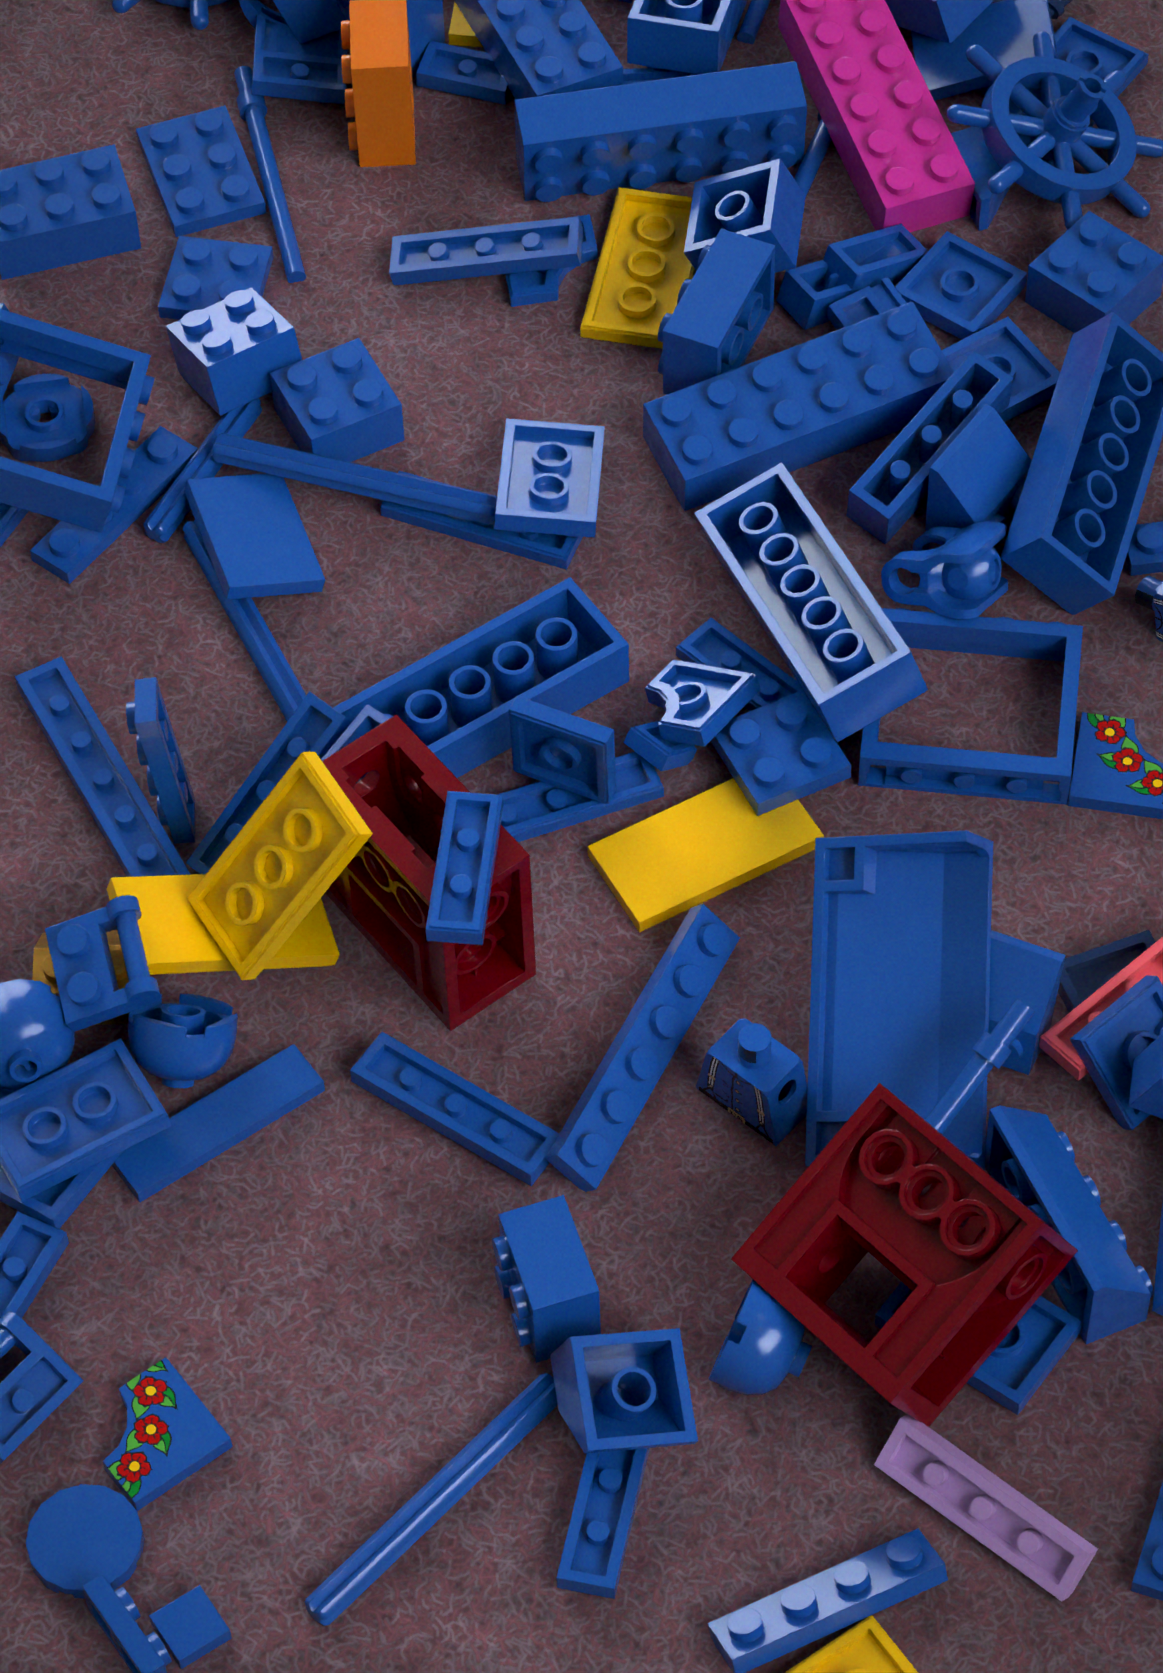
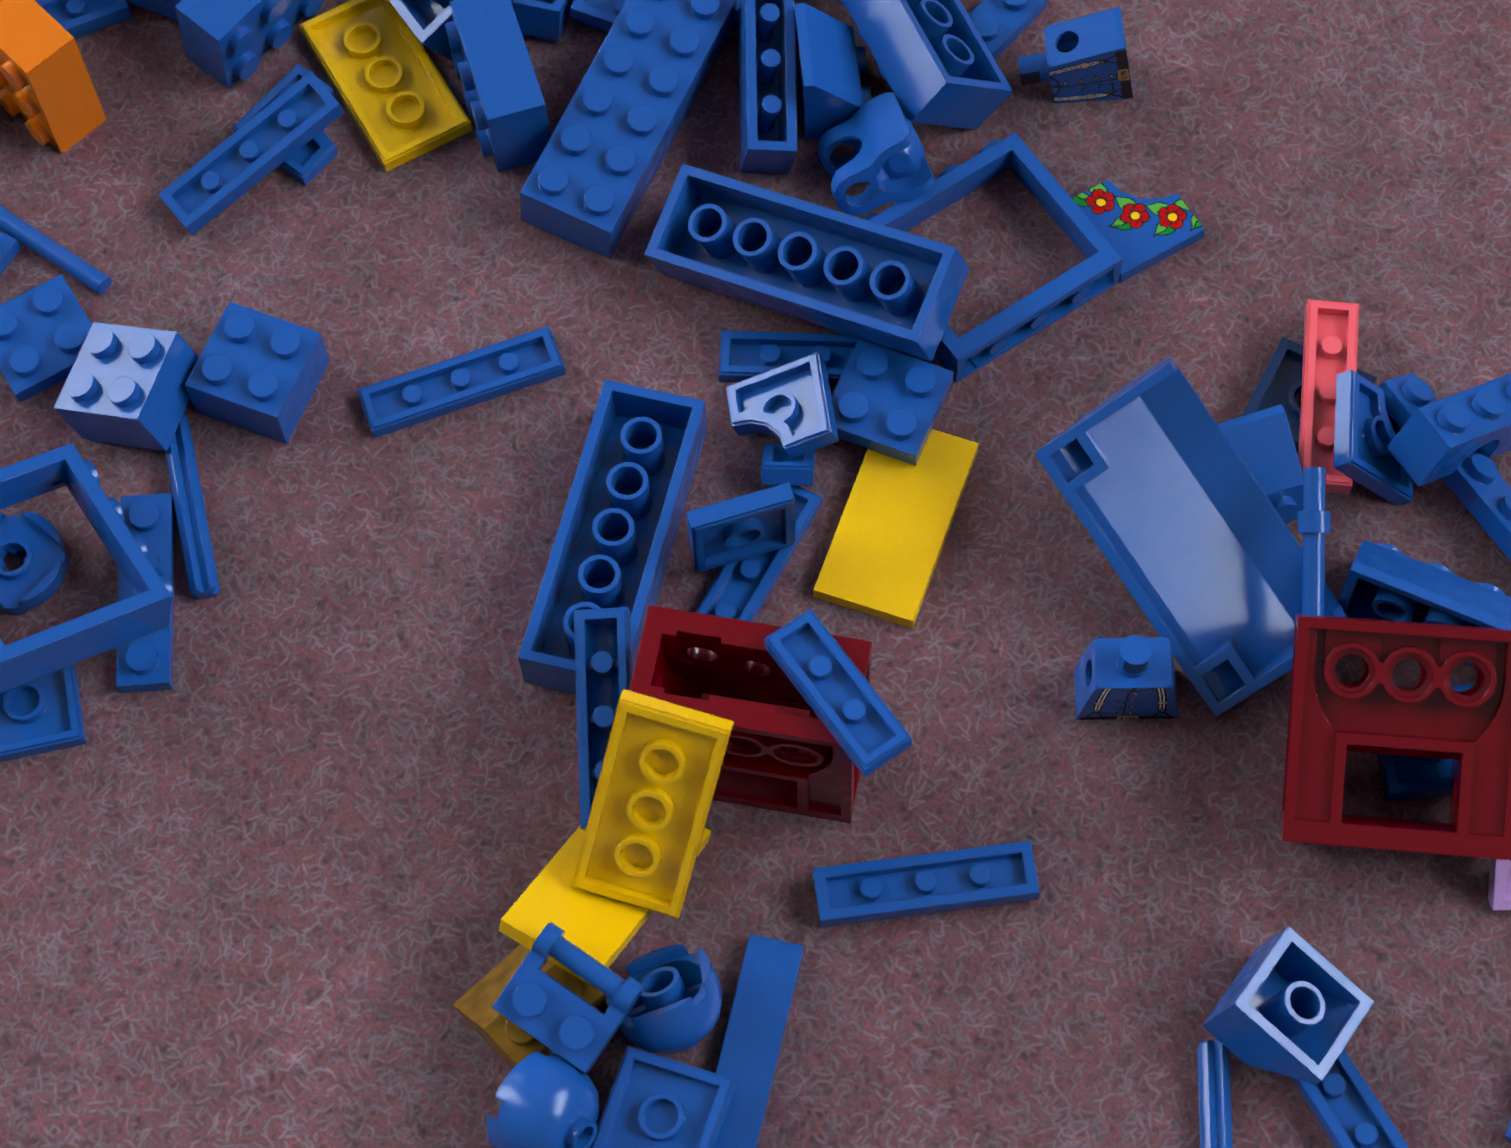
camera: 40 degrees left, 10 degrees up
(98, 772) = (377, 836): blue plate -> none
(164, 762) = (448, 786): blue plate -> none
(252, 631) = (371, 614): blue axle -> none
(254, 536) = (296, 533): blue tile -> none
(310, 729) = (541, 742): blue plate -> none
(355, 478) = (333, 423): blue axle -> none
(545, 1276) = (1147, 966): blue brick -> none
(549, 478) = (491, 307): plate -> none
(642, 1048) = (1017, 721): blue plate -> none
(760, 1346) = (1339, 889): blue cylinder -> none

